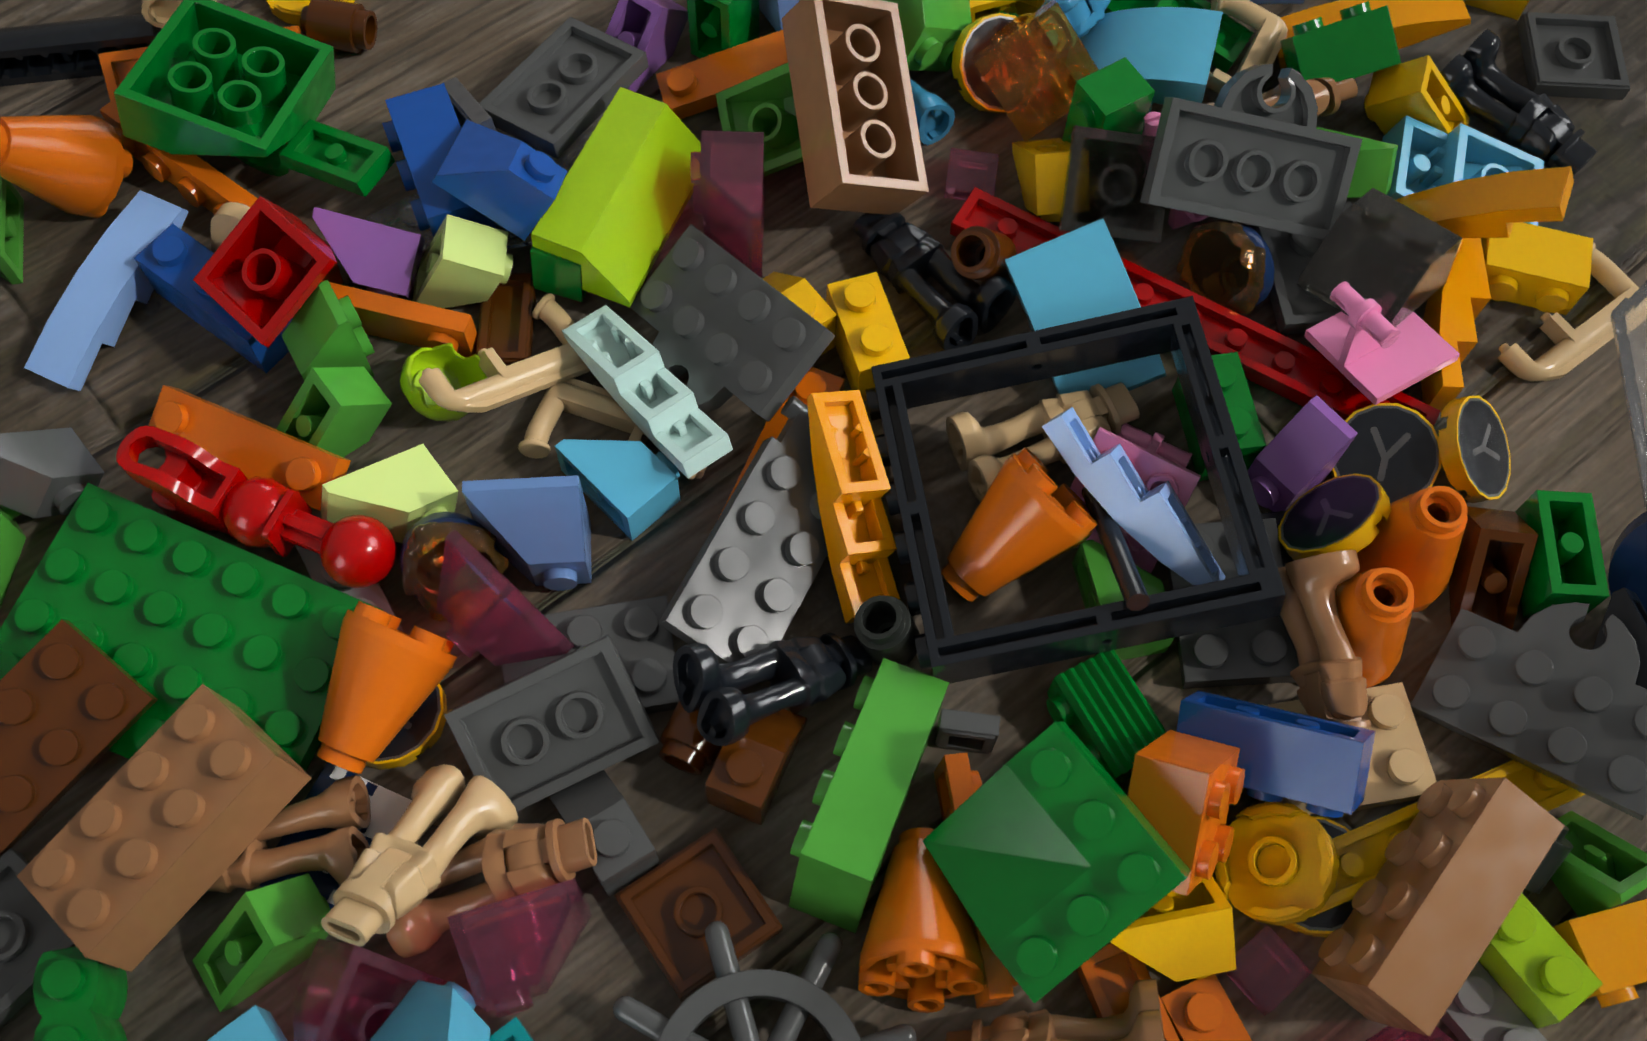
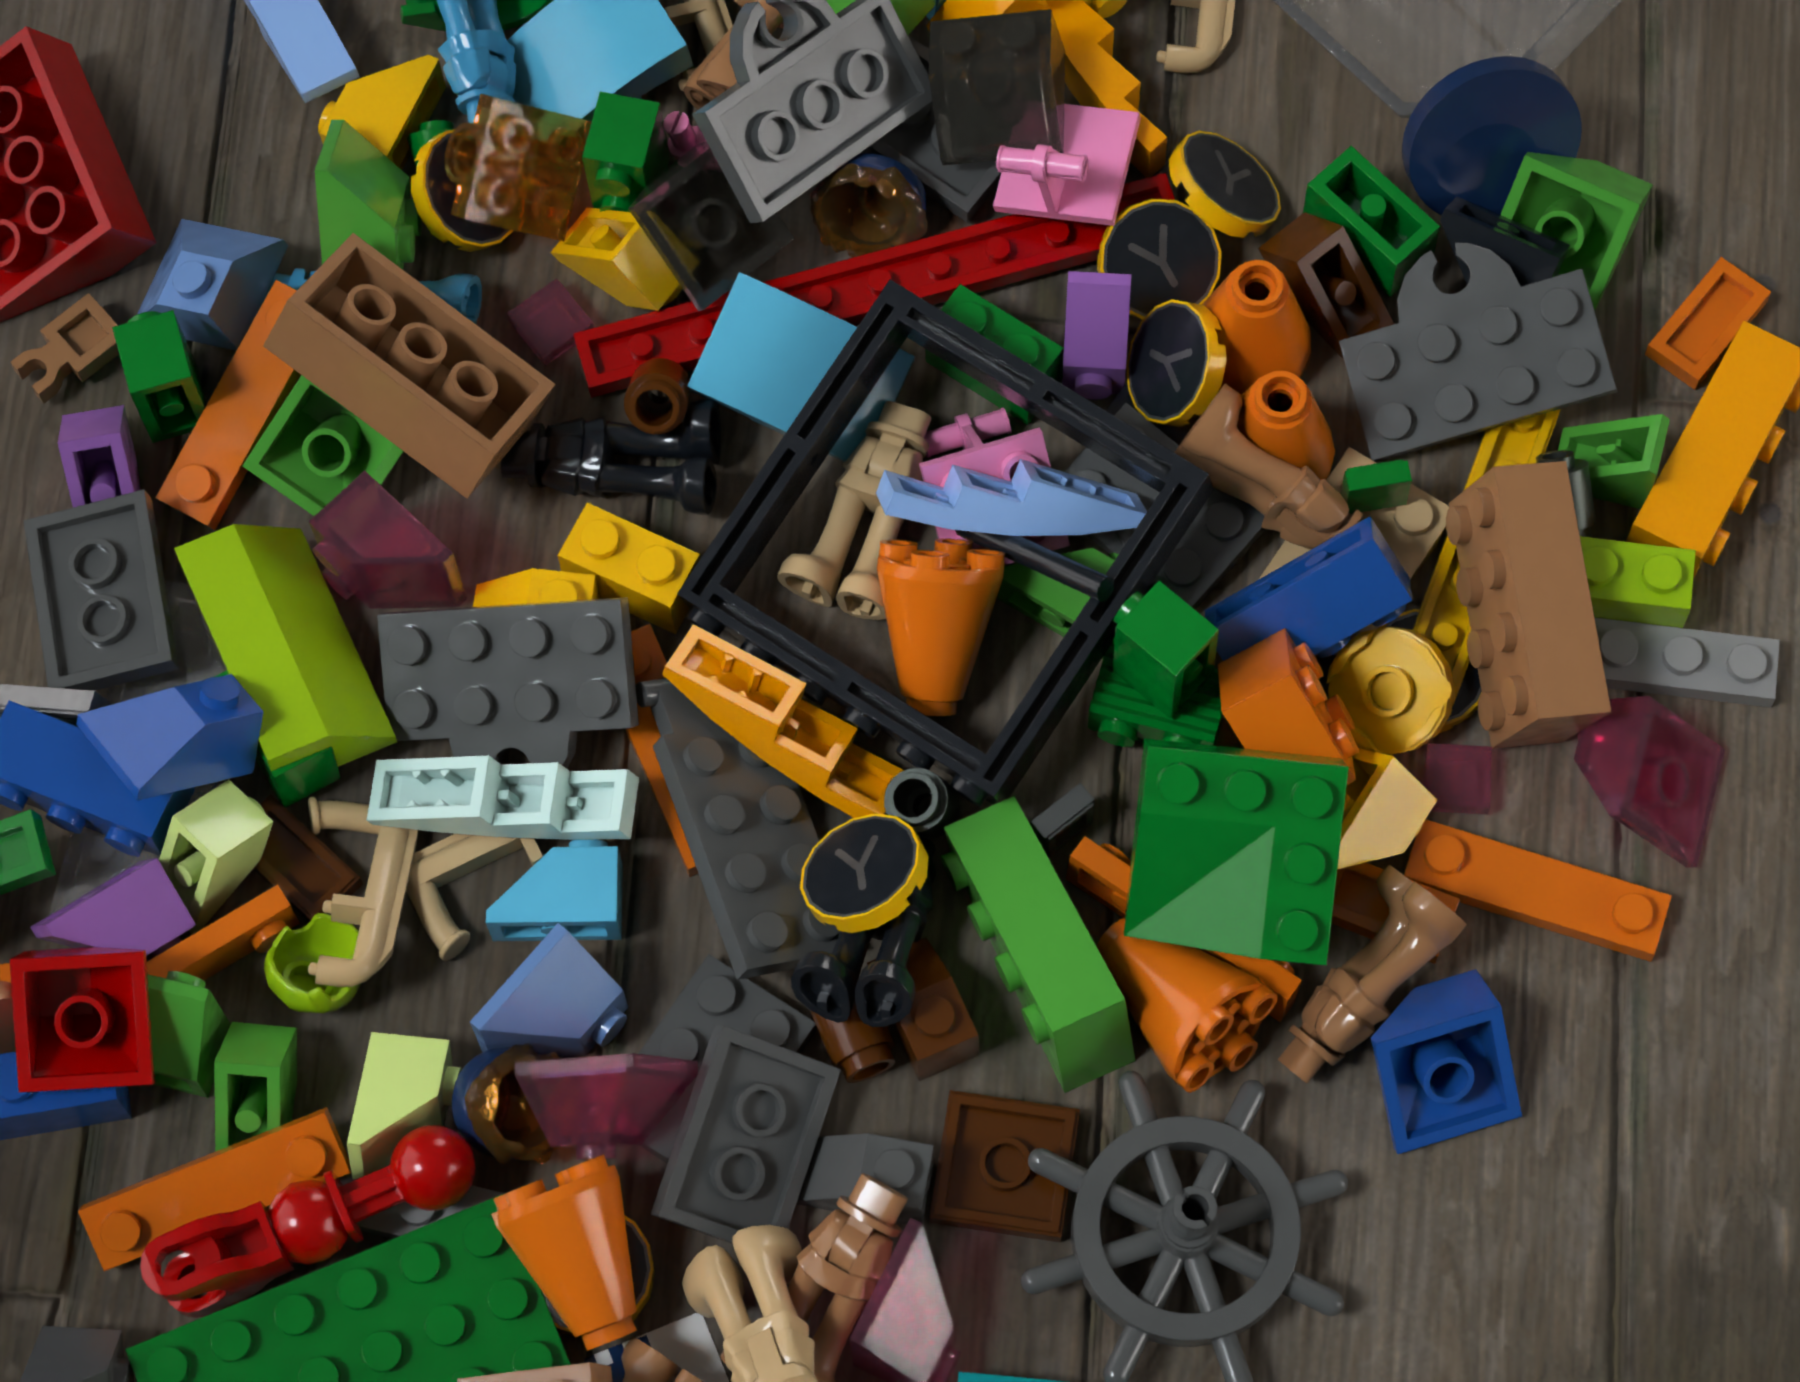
camera: 40 degrees left, 5 degrees up
(799, 634) = (863, 872): none -> black tile
(1141, 678) = (1163, 648): none -> green brick
(1399, 720) = (1377, 486): none -> green tile

